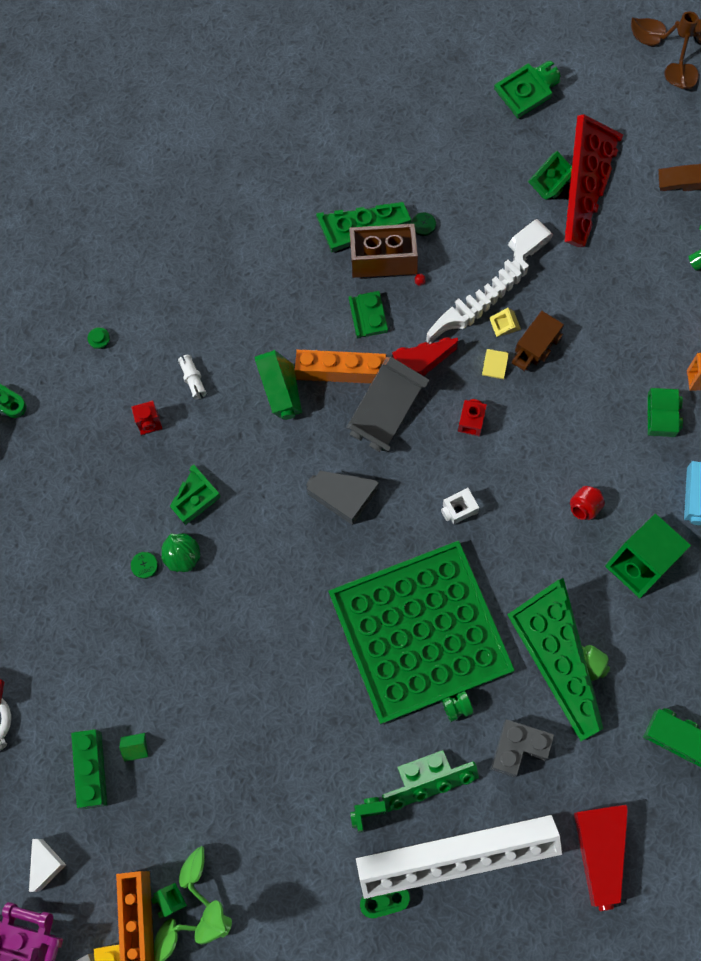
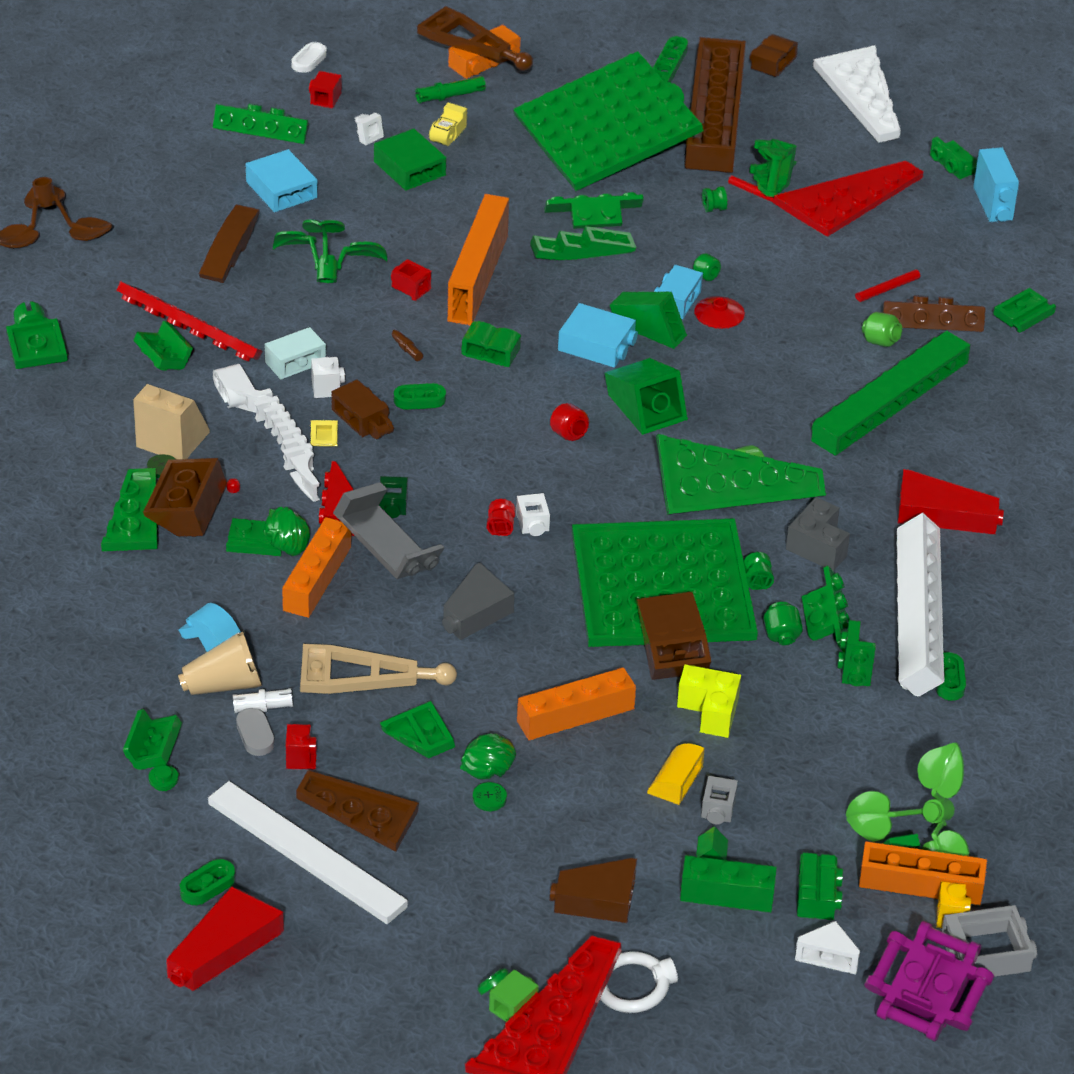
camera: 80 degrees left, 30 degrees down
(53, 457) = (308, 852): none -> white tile
(59, 672) = (596, 890): none -> reddish brown slope
(103, 478) = (366, 810): none -> reddish brown wing
(106, 841) = (818, 886): none -> green brick
(127, 316) = (150, 740): none -> green bracket
(162, 382) = (255, 731): none -> light grey tile
(169, 734) = (719, 807): none -> light grey brick
(202, 698) = (678, 773): none -> yellow brick
(209, 341) = (221, 669): none -> tan cone
(234, 403) = (317, 668): none -> tan plate
(245, 318) = (211, 625): none -> medium azure brick
(251, 601) = (576, 703): none -> orange brick
(279, 384) = (319, 616): green slope -> none
(293, 710) = (711, 693): none -> neon yellow brick
(342, 656) = (673, 634): none -> reddish brown slope
(372, 332) = (287, 530): none -> green hair
(399, 742) = (783, 623): none -> green head
(445, 389) = (394, 503): none -> dark green brick
(448, 483) = (501, 517): none -> red wheel
(458, 210) = (167, 423): none -> tan slope
(472, 417) = (430, 481): red brick -> none
(495, 364) = (371, 451): light yellow slope -> none
(564, 301) = (326, 376): none -> white brick
(576, 378) = (419, 396): none -> green plate
(587, 269) = (294, 352): none -> light aqua brick
(638, 349) = (407, 345): none -> reddish brown piece

